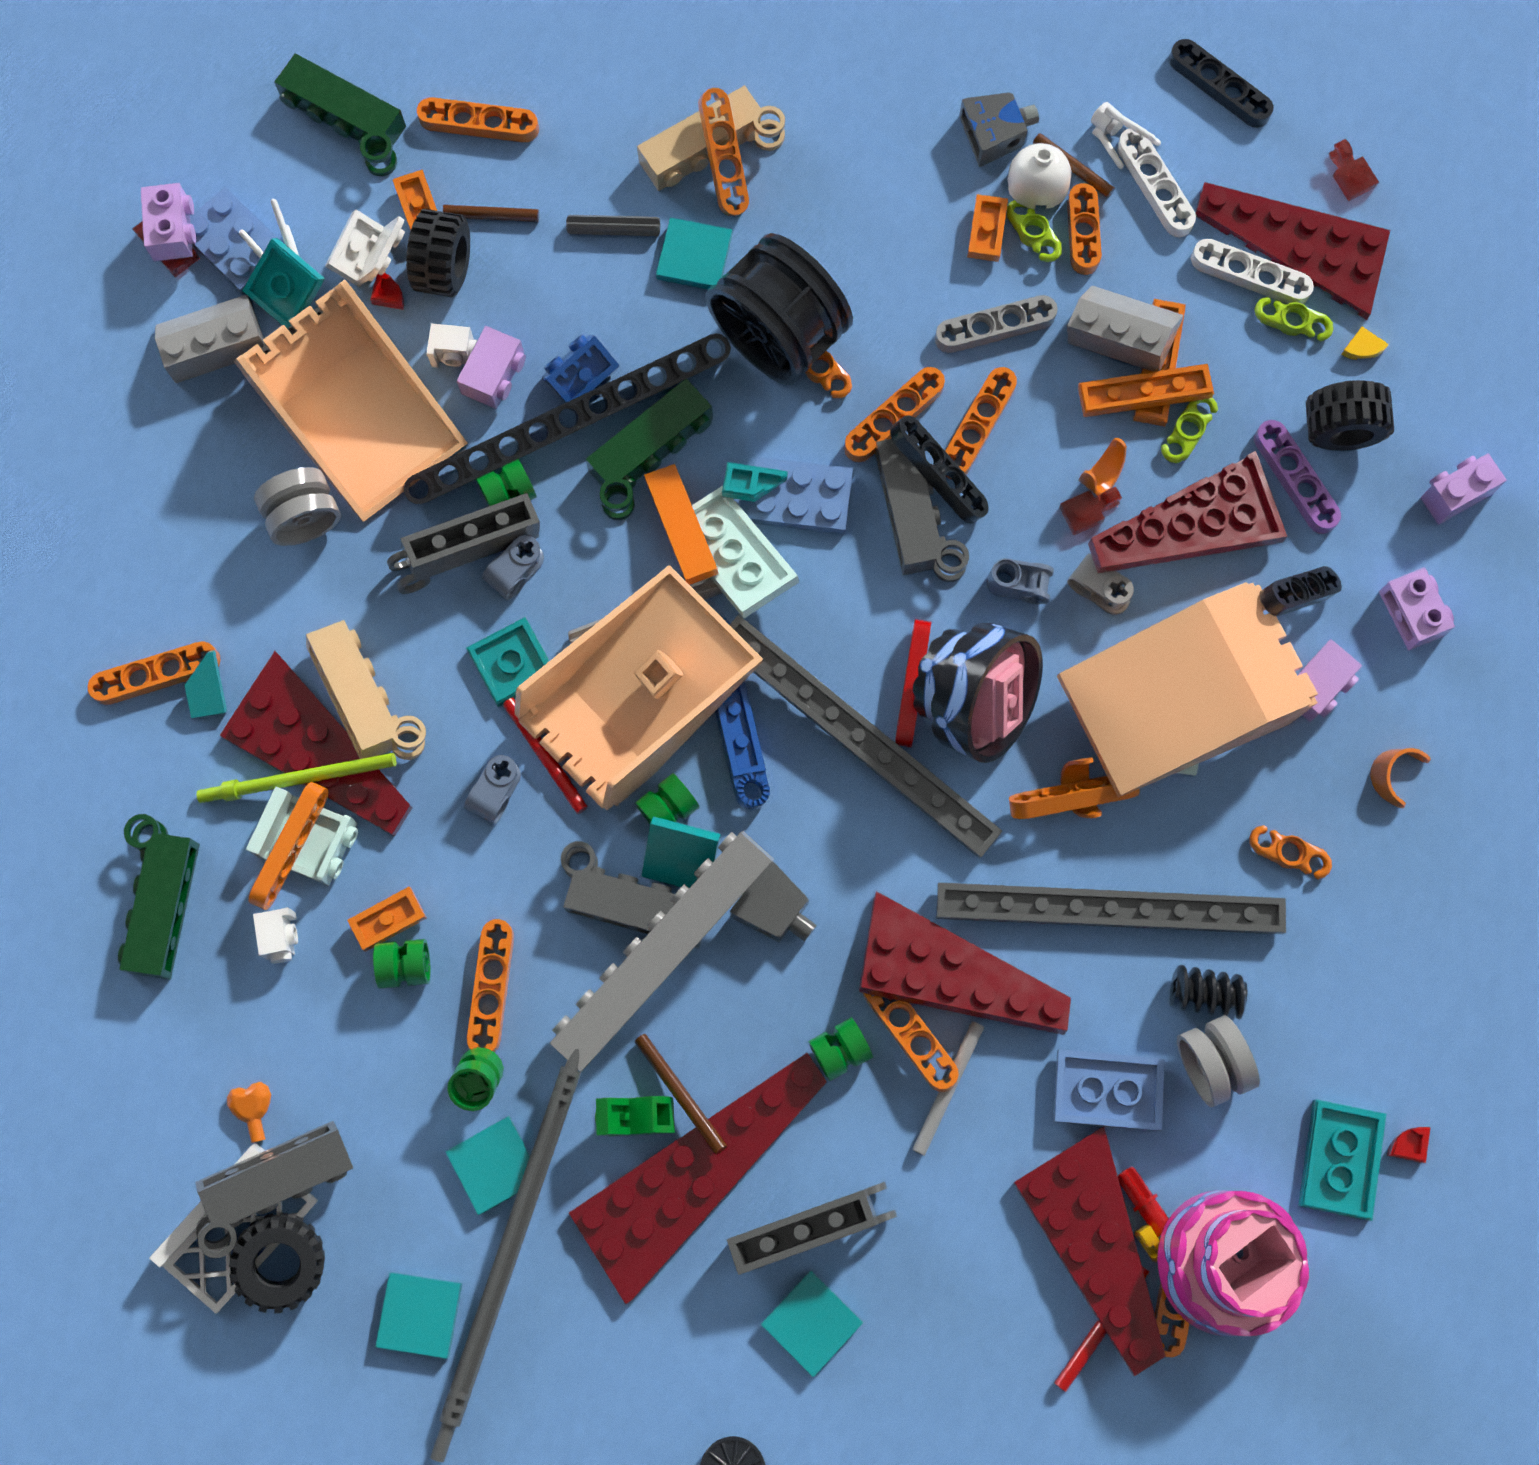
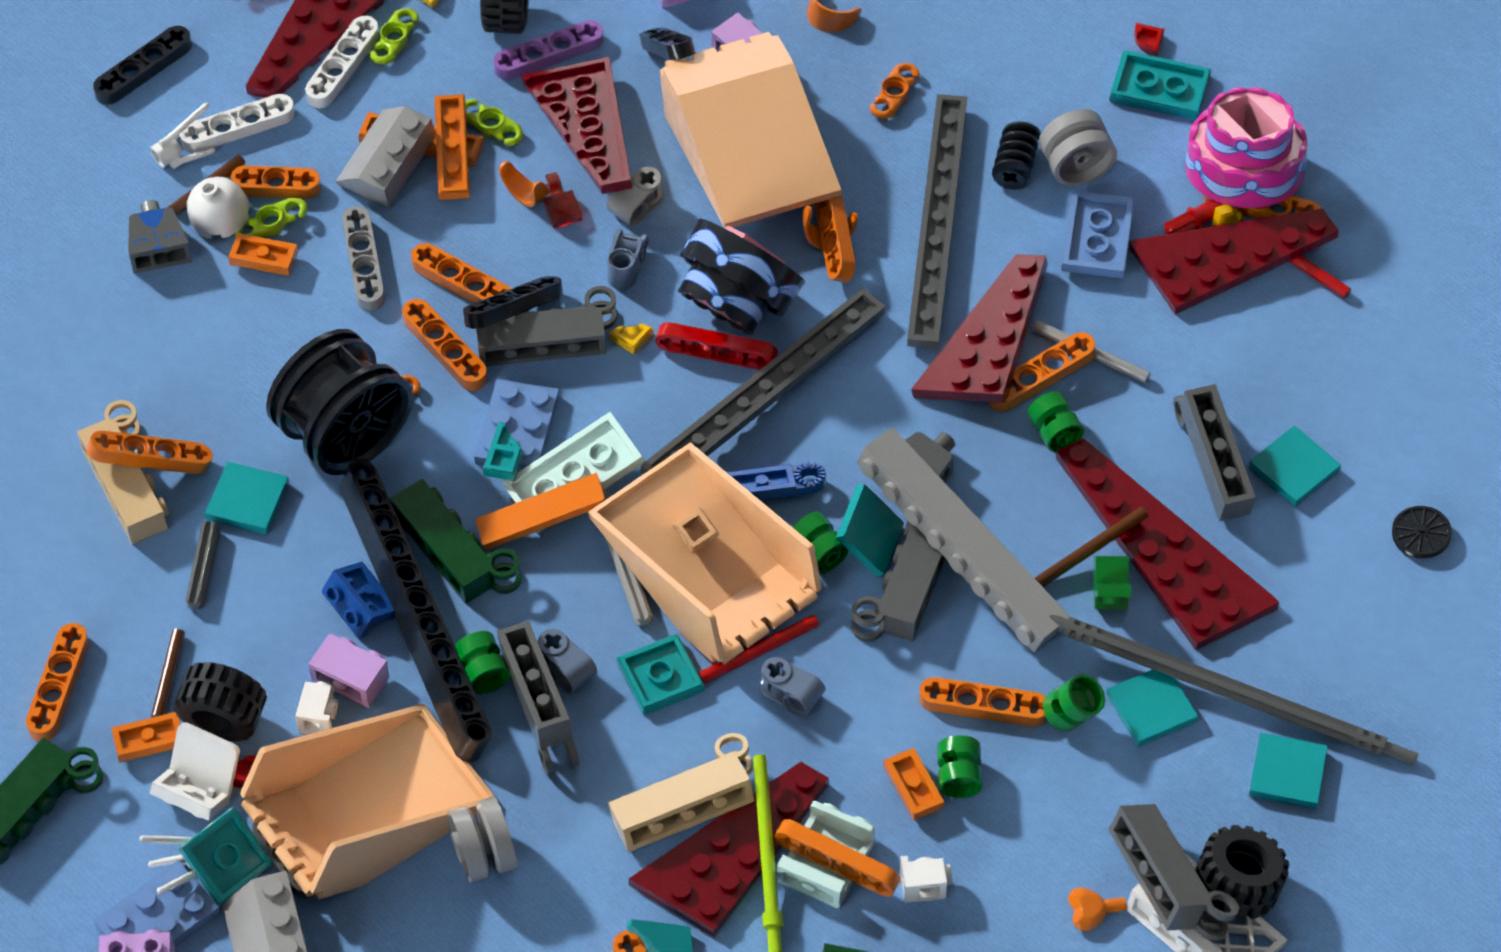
camera: 85 degrees left, 20 degrees down
(923, 598) = (631, 337): none -> yellow tile

